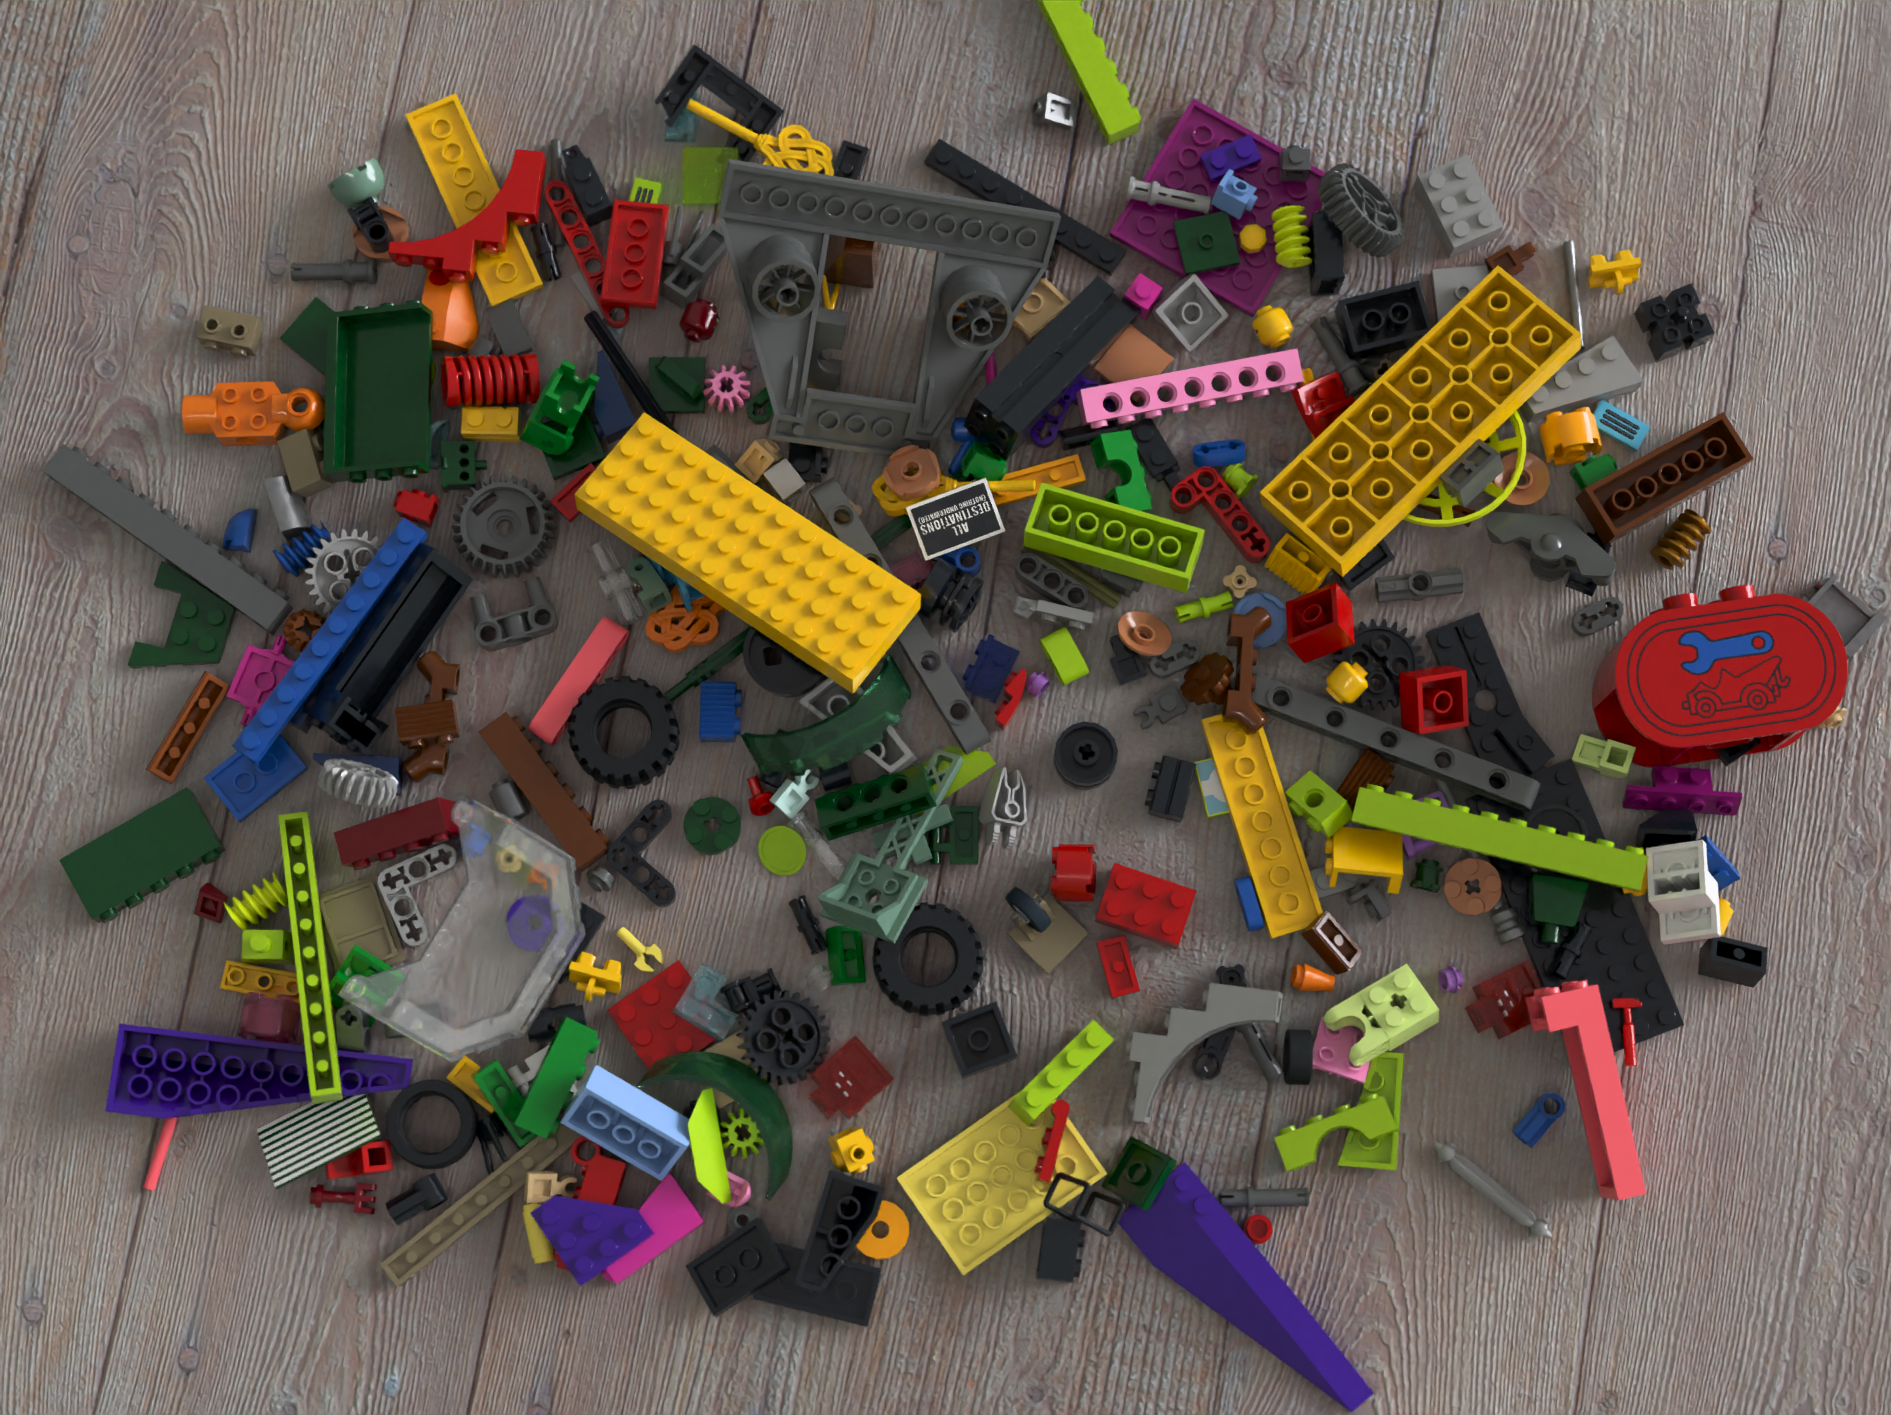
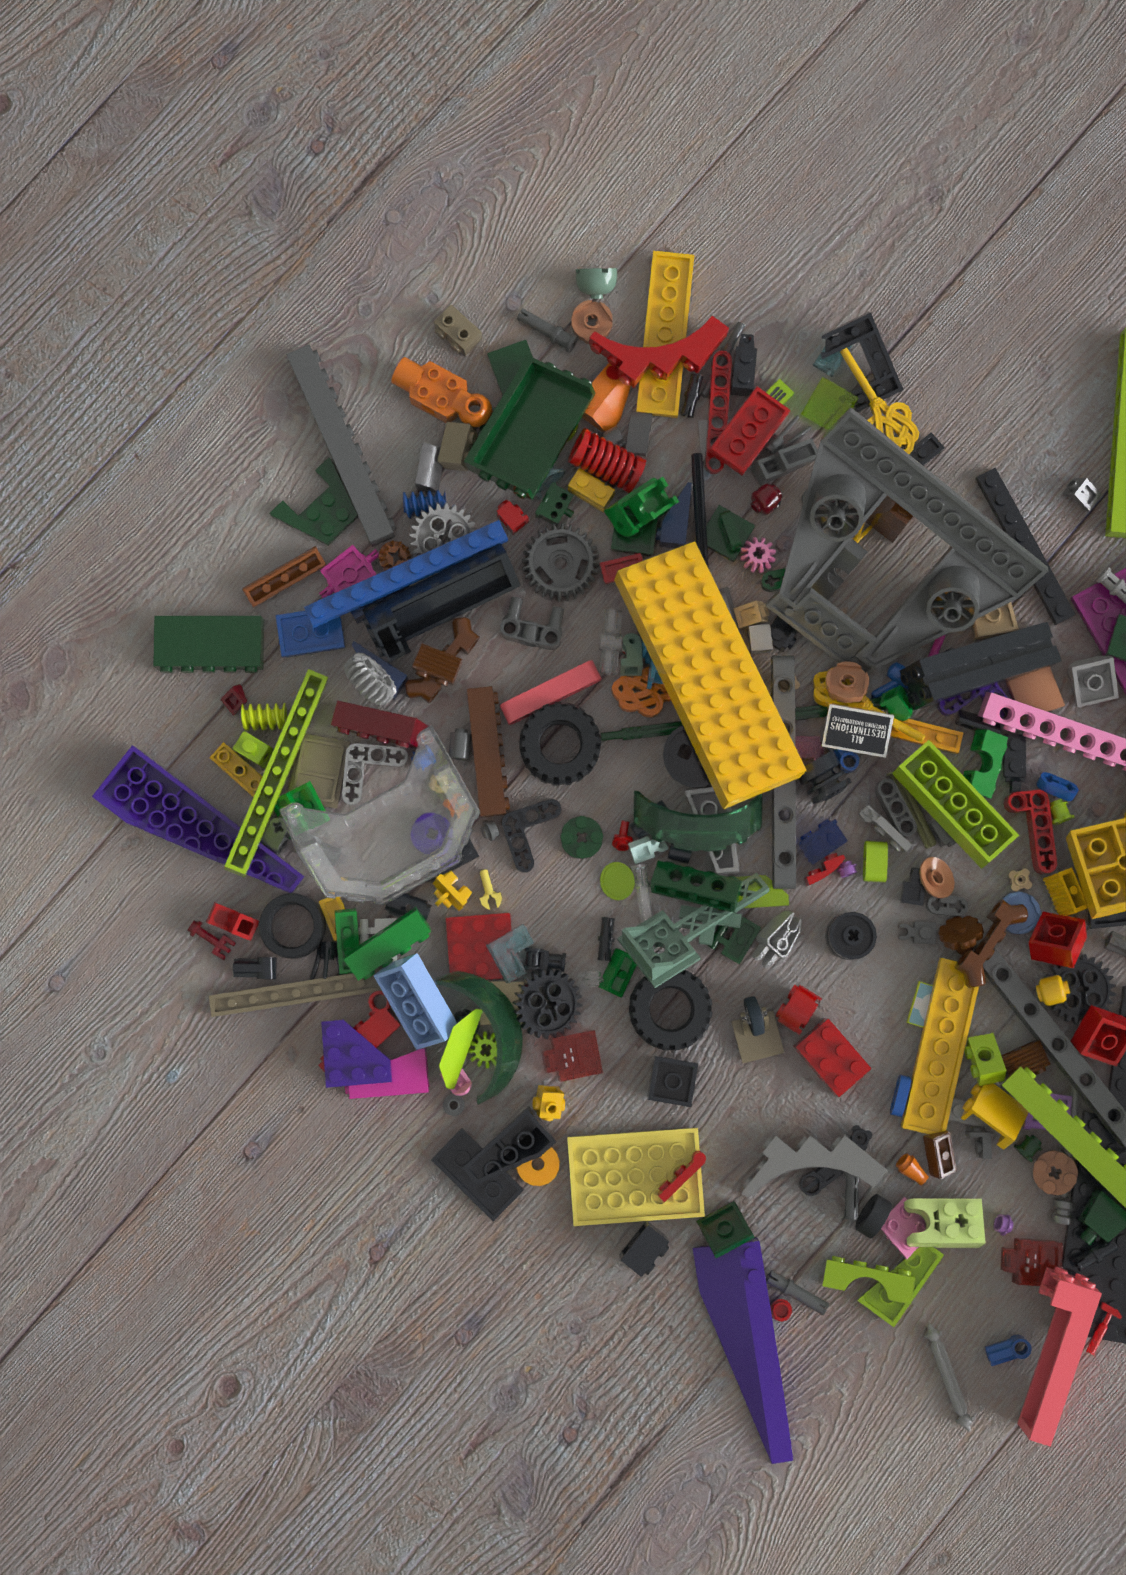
camera: 30 degrees right, 5 degrees up
(160, 1153) = (111, 842): coral bar -> none
(240, 531) = (390, 466): blue brick -> none
(270, 1018) = (228, 797): clear pink brick -> none
(316, 1136) = (213, 890): sticker -> none
(371, 222) = (589, 310): black piece -> none
(540, 1246) = (315, 1045): light yellow piece -> none
(544, 1185) = (341, 1008): tan plate -> none
(718, 711) = (629, 765): blue brick -> none
(737, 1267) = (432, 1134): black plate -> none
(1060, 1072) = (713, 1135): lime arch -> none
(1075, 1215) = (679, 1228): black piece -> none
(1118, 967) = (790, 1086): red plate -> none
(1144, 295) = (1070, 651): dark pink brick -> none
(1171, 788) = (893, 990): black brick -> none
(1203, 607) = (986, 882): lime pin -> none

